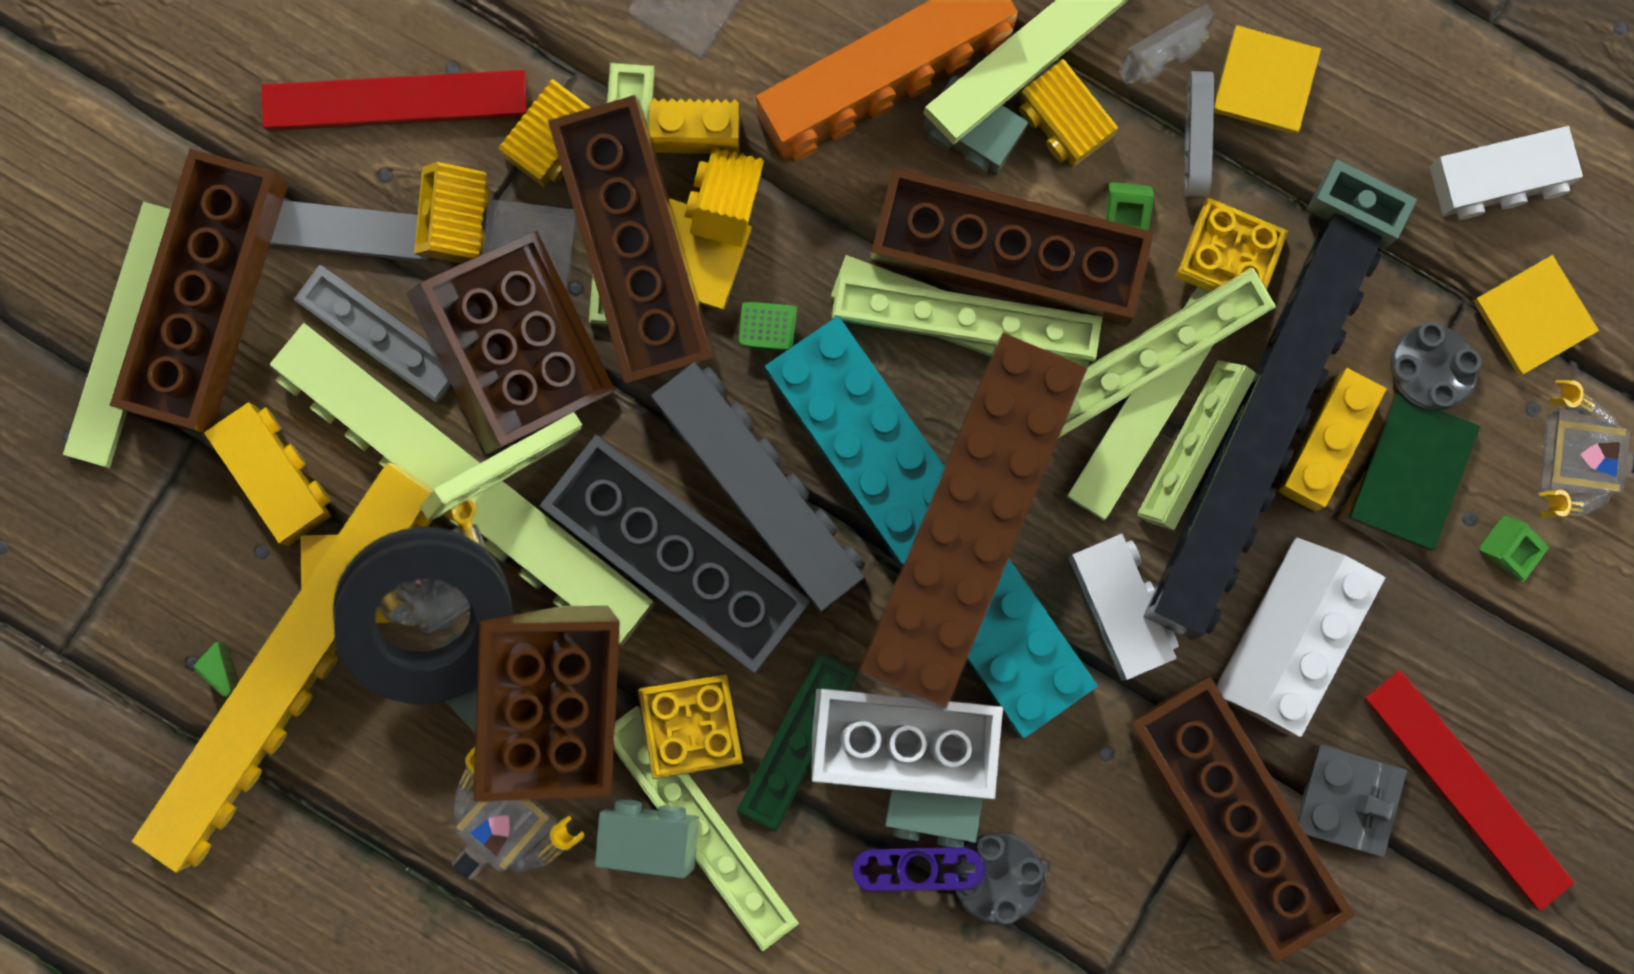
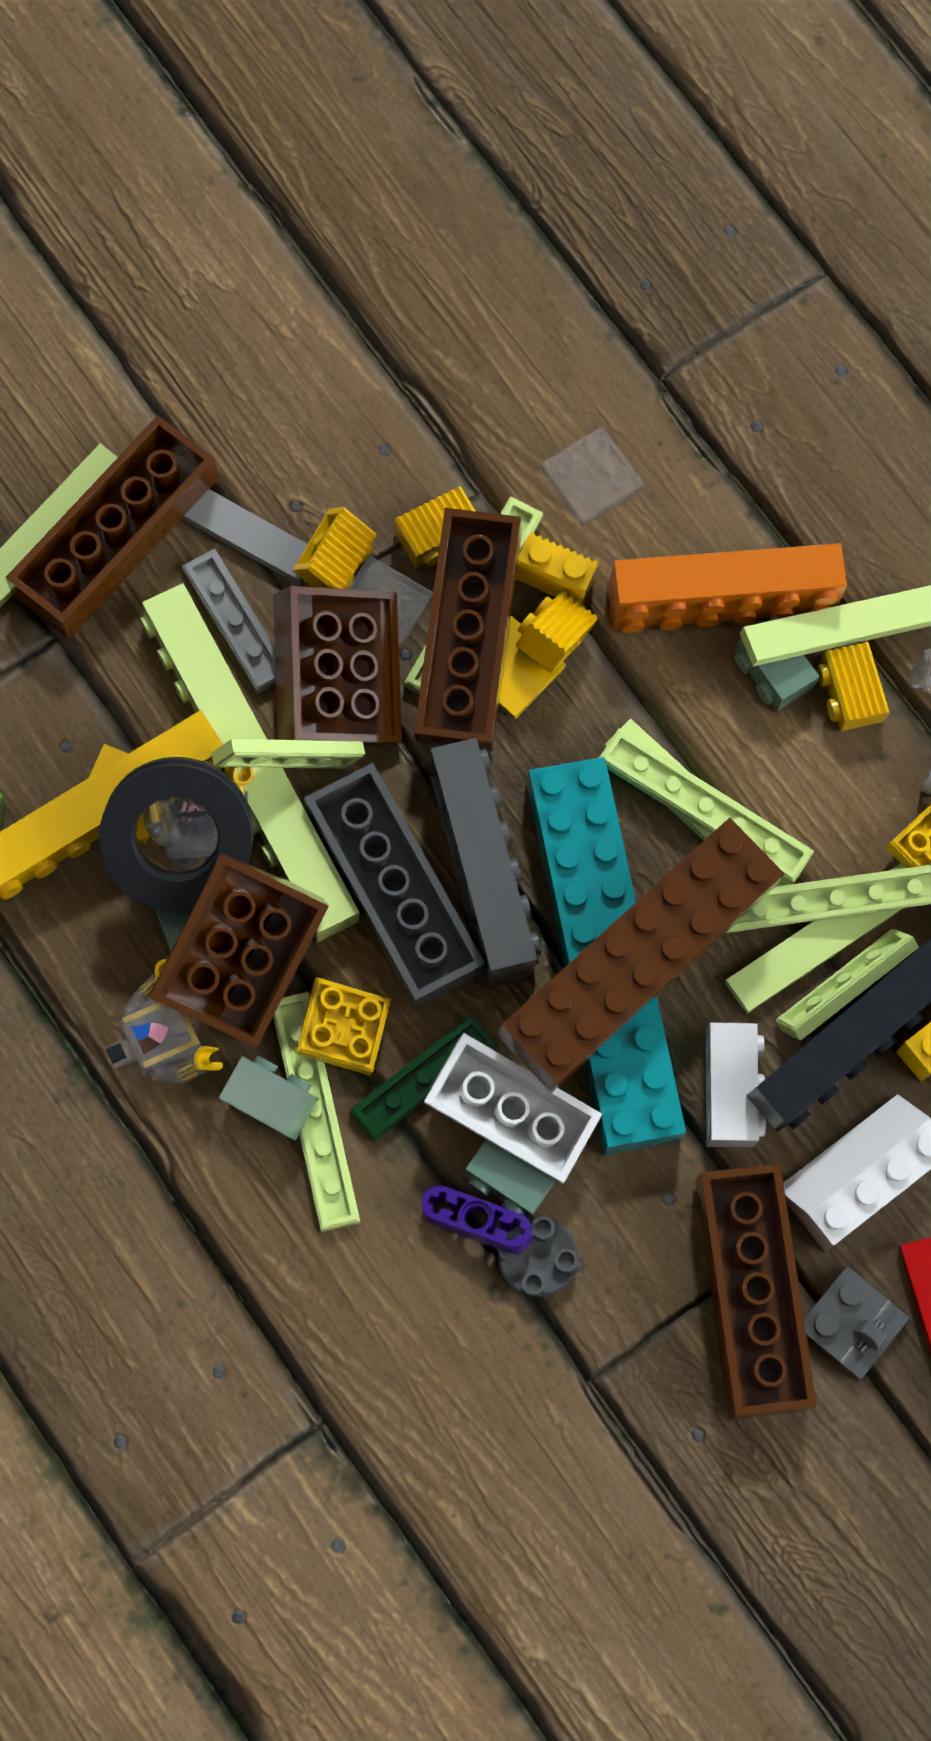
camera: 15 degrees right, 10 degrees down
(270, 473) = (102, 686): yellow brick -> none
(394, 100) = (329, 452): red tile -> none
(767, 326) = (543, 744): bright green slope -> none
(1011, 247) = (763, 765): reddish brown brick -> none
(1129, 204) = (870, 782): bright green slope -> none

